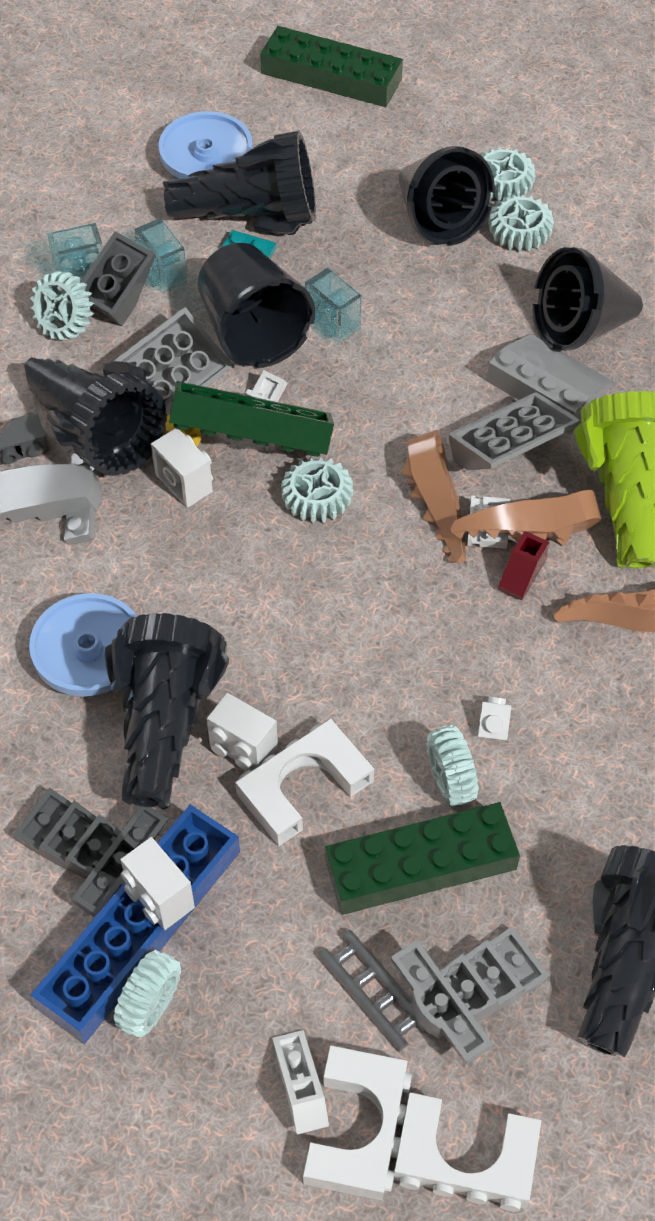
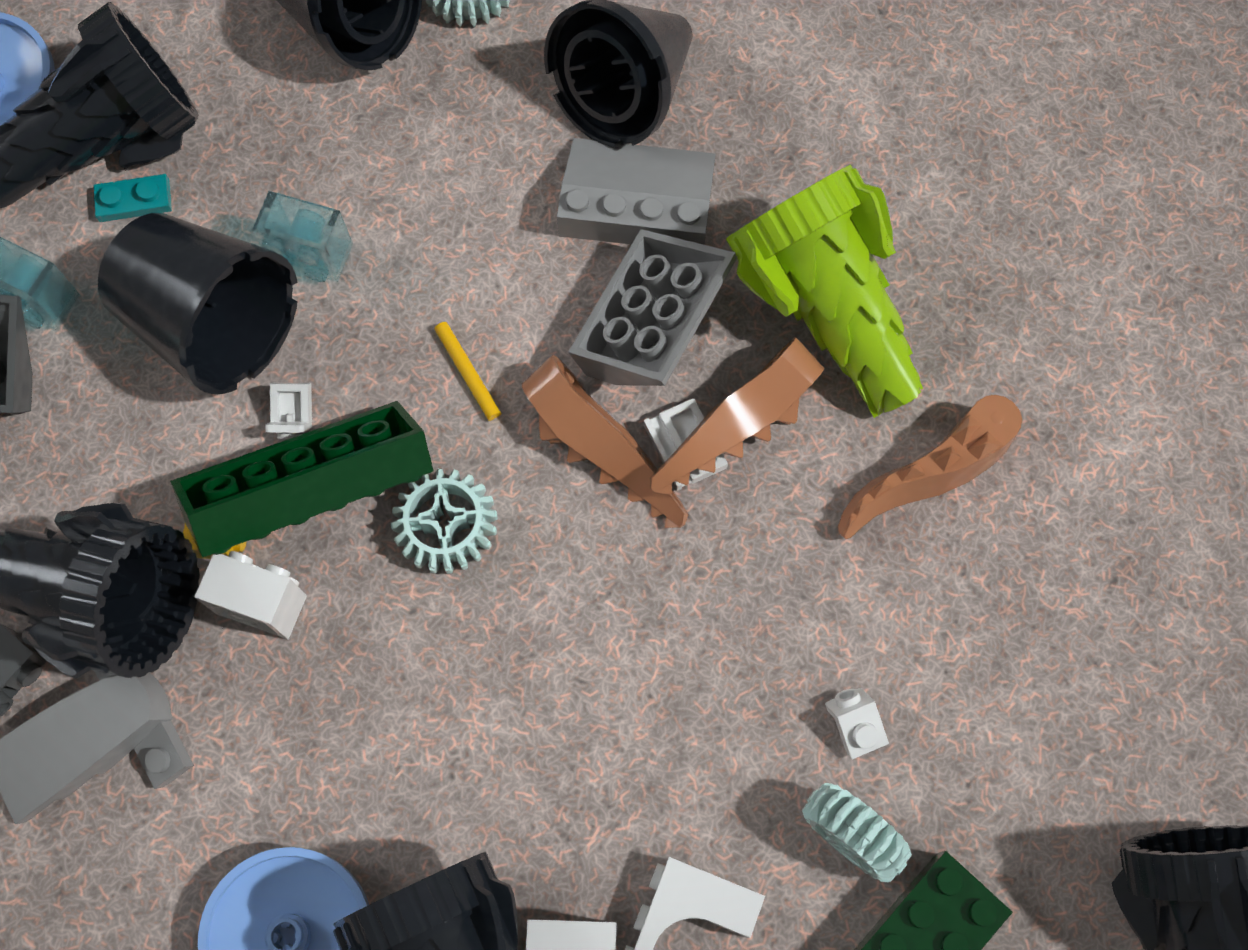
camera: 30 degrees left, 15 degrees up
(180, 353) = (136, 439): light grey slope -> none
(383, 423) = (467, 371): none -> yellow bar
(524, 565) = (768, 487): dark red slope -> none

